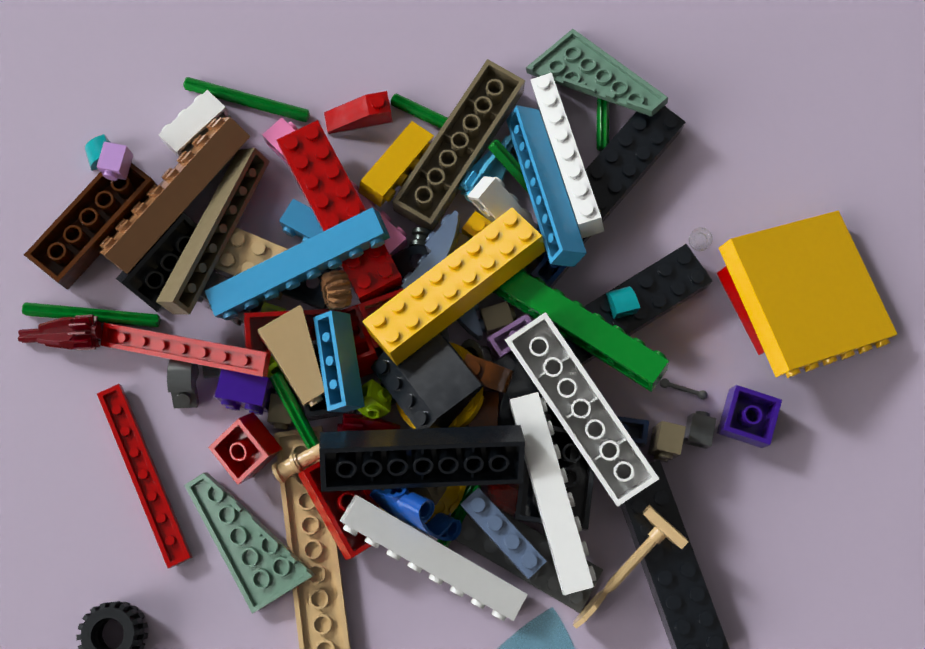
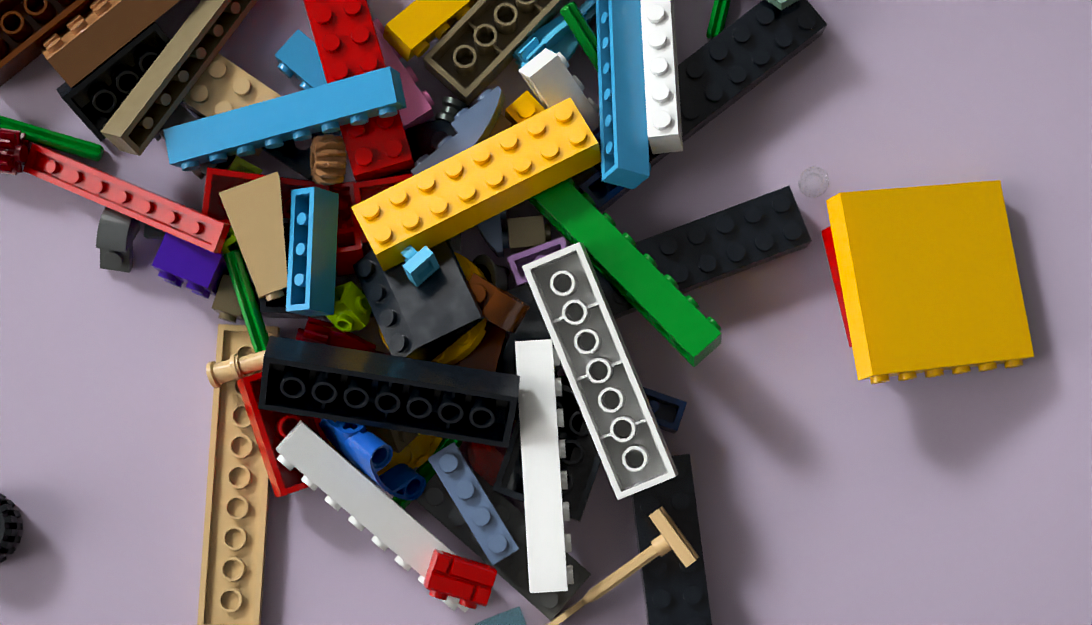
camera: 15 degrees right, 5 degrees up
(144, 476) = (49, 344): red plate -> none
(245, 448) = (178, 335): red brick -> none
(253, 555) = (164, 467): sand green wing -> none
(424, 354) = (419, 264): none -> medium azure tile
(505, 595) = (460, 579): none -> red brick
(623, 302) = (687, 246): teal brick -> none
(664, 383) = (723, 359): dark grey hinge -> none
(666, 441) = (704, 432): dark tan brick -> none
(699, 430) = (752, 426): dark grey brick -> none
(749, 416) = (818, 422): dark purple brick -> none

